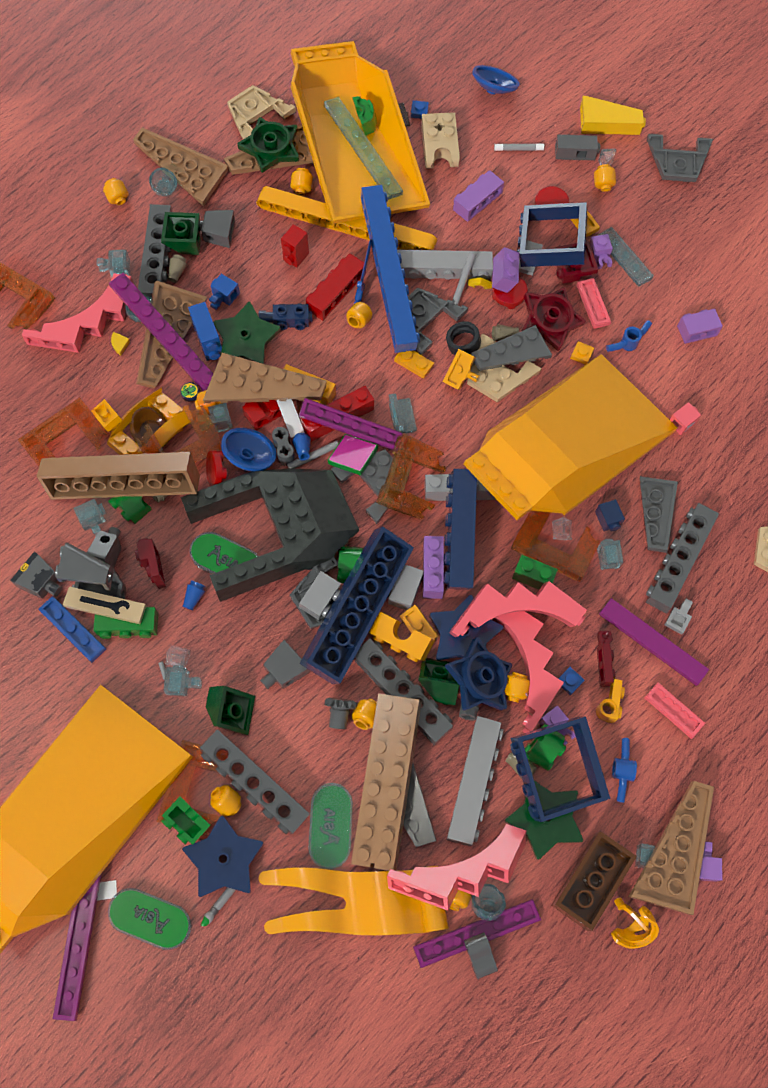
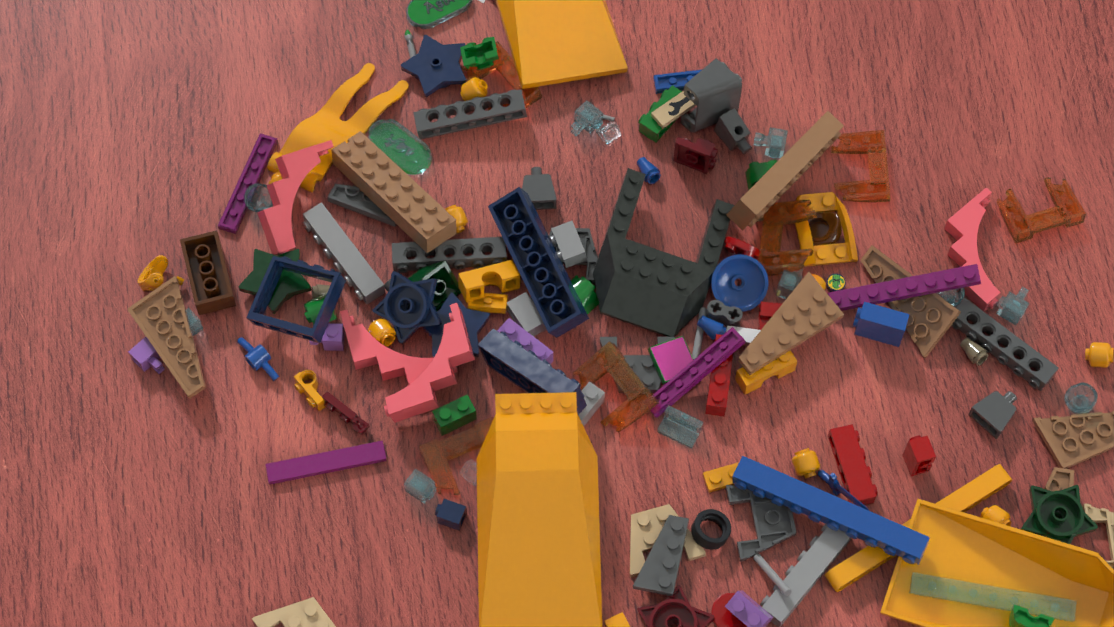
camera: 130 degrees right, 5 degrees down
(36, 577) = (754, 79): dark grey torso -> none
(106, 415) = (858, 204): light orange plate -> none
(119, 343) = (928, 261): yellow tile -> none
(182, 232) = (1006, 373): dark green slope -> none
(217, 553) = (662, 212): green tile -> none
(224, 291) = (918, 372): blue brick -> none
(230, 709) = (536, 135): dark green slope -> none
(245, 323) = (854, 355): dark green plate -> none
(288, 316) = (852, 406): dark blue brick -> none
(339, 711) = (473, 203): dark grey gear -> none
(460, 370) = (681, 500): light orange plate -> none
(480, 282) = (761, 592): yellow tile -> none
(480, 955) = (232, 169): dark grey axle -> none
(501, 332) = (691, 571): dark tan cone -> none
(571, 680) = (352, 377): blue plate -> none
(658, 508) = (422, 558): dark grey wing -> none
(674, 710) = (263, 430): coral plate -> none
(678, 618) = (325, 495): light grey plate -> none
(705, 519) = (385, 587): dark grey brick -> none

